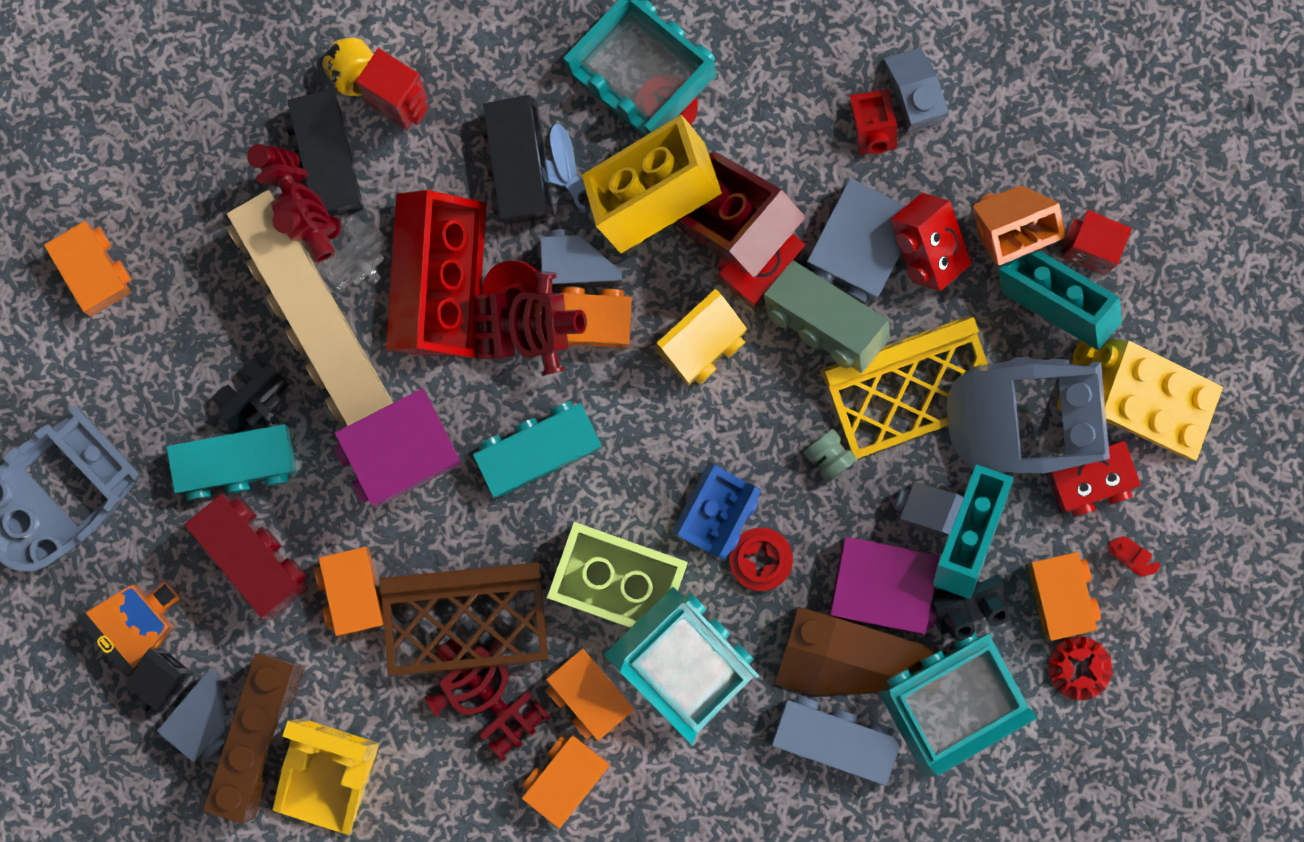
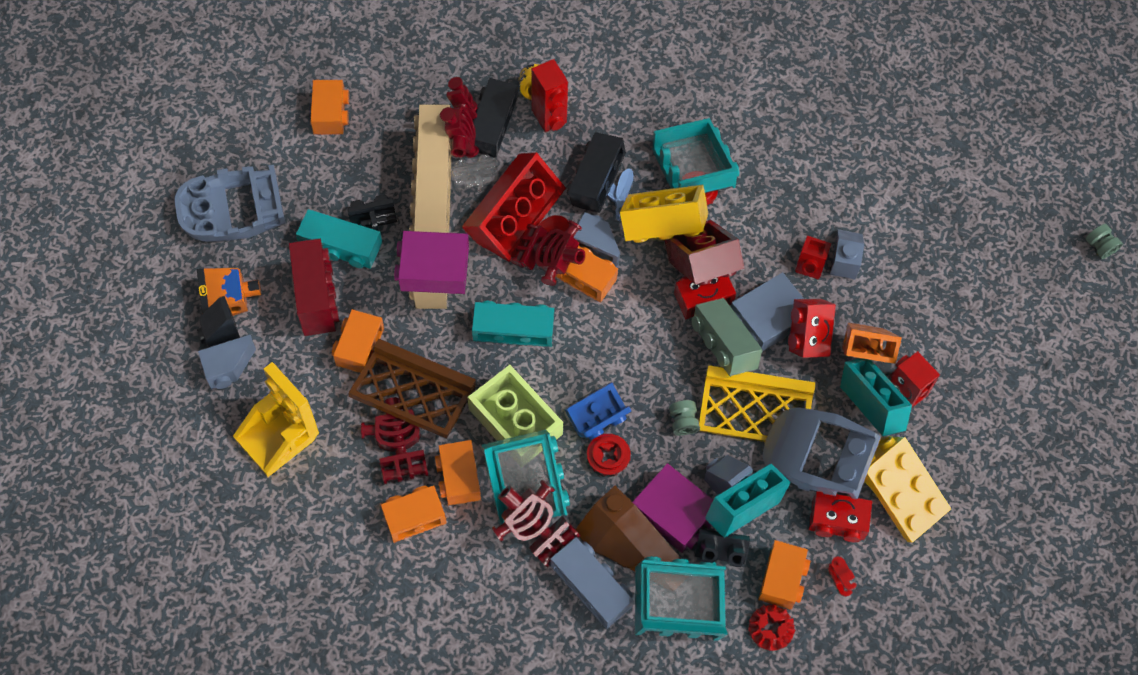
camera: 30 degrees right, 20 degrees down
(238, 778) = (221, 395): reddish brown arch -> none
(702, 339) = (645, 310): yellow slope -> none
(725, 713) = (525, 512): none -> dark red piece

